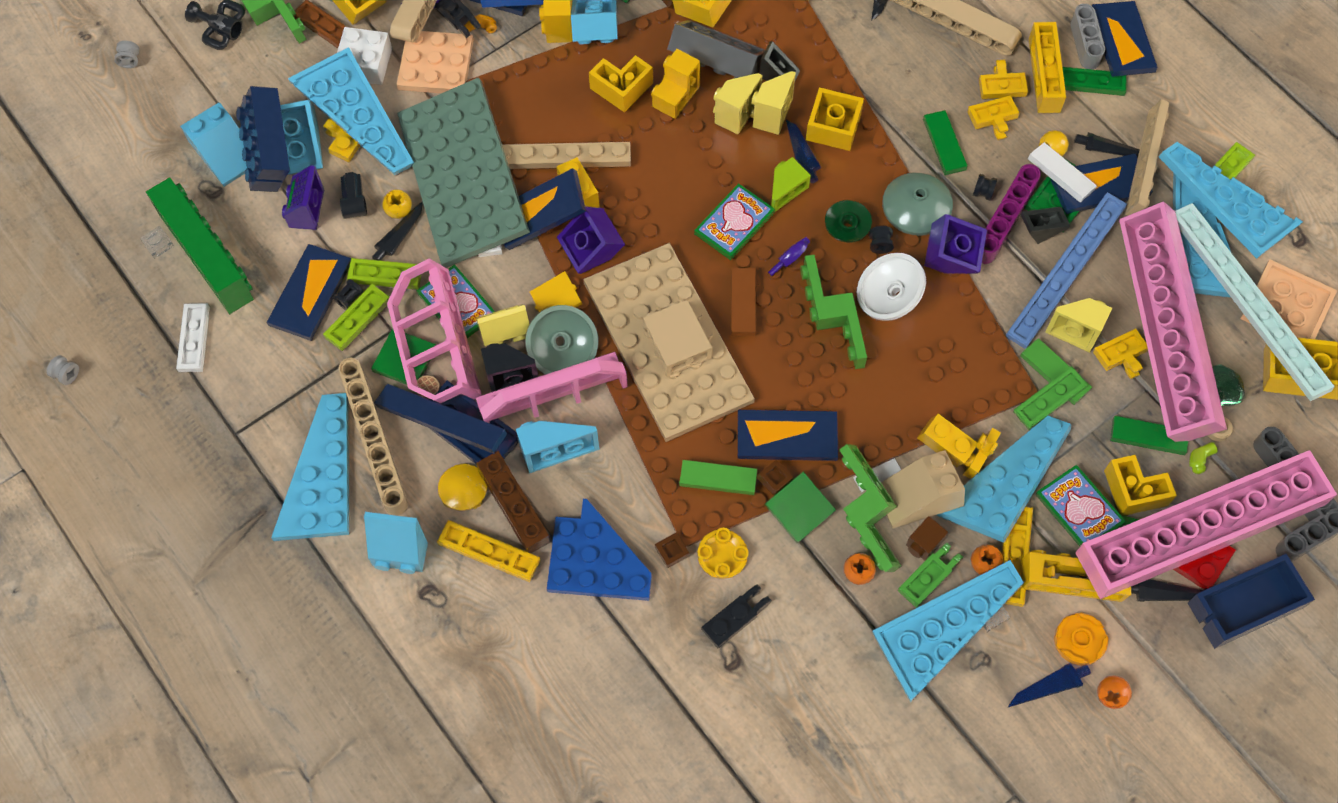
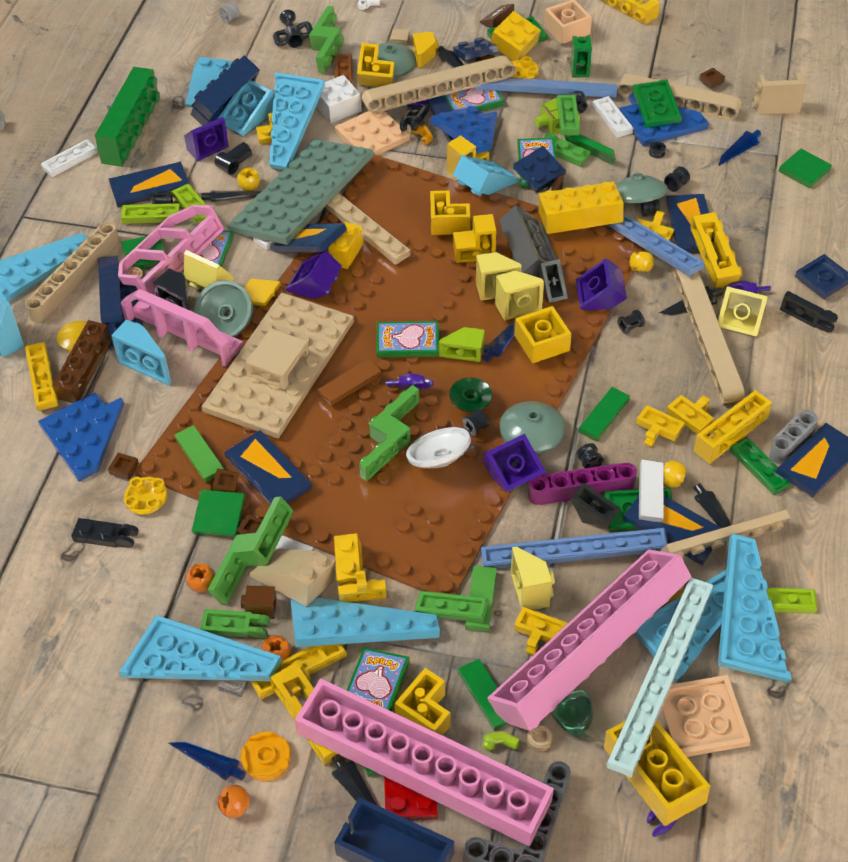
camera: 50 degrees right, 15 degrees down
(816, 38) = (601, 287): none -> dark purple slope
(839, 491) = (249, 525): none -> reddish brown plate
(867, 47) = (631, 321): none -> black bush

